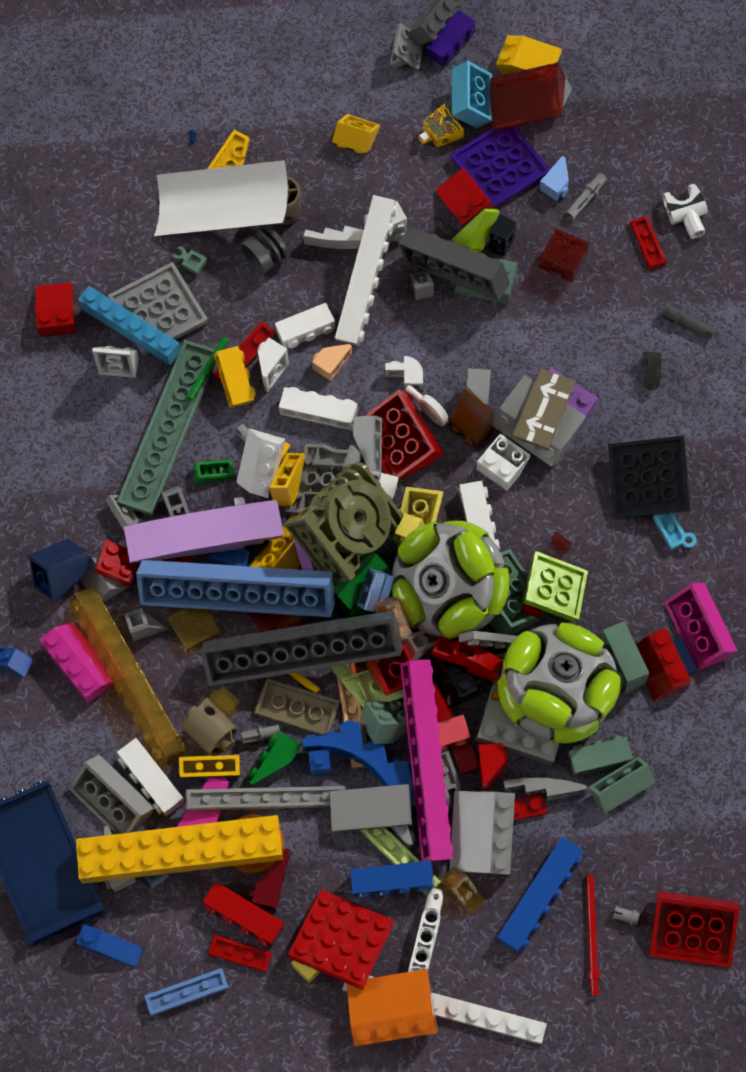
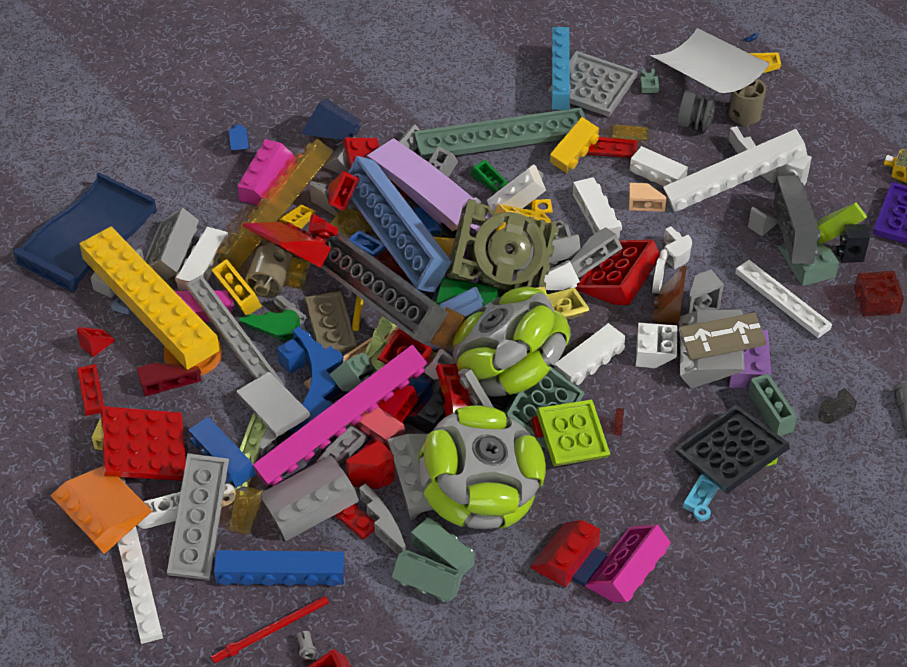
camera: 55 degrees right, 20 degrees down
(55, 309) = (534, 31): red slope -> none
(108, 946) = (43, 302): blue slope -> none
(116, 361) = (525, 75): white slope -> none
(156, 677) = (302, 219): none -> yellow slope
(158, 610) = (342, 190): none -> red slope
(185, 920) = (94, 340): none -> red slope
(186, 992) = (35, 370): medium blue plate -> none
(198, 691) = (292, 240): none -> red slope
(206, 370) = (558, 129): green bar -> none
(215, 656) = (321, 228): none -> red bracket
(235, 626) = (367, 243): none -> blue slope
(243, 914) = (124, 374): red brick -> none
(245, 319) = (630, 132): none -> clear yellow slope
(272, 361) = (604, 160): white slope -> none
(355, 133) = (848, 119): yellow slope -> none
(455, 933) = (198, 517): none -> light grey plate
(464, 197) = (871, 203): red slope -> none
(515, 329) = (783, 299): none -> white plate
(623, 417) = (772, 405): none -> sand green brick
(625, 656) = (547, 513): sand green brick -> none

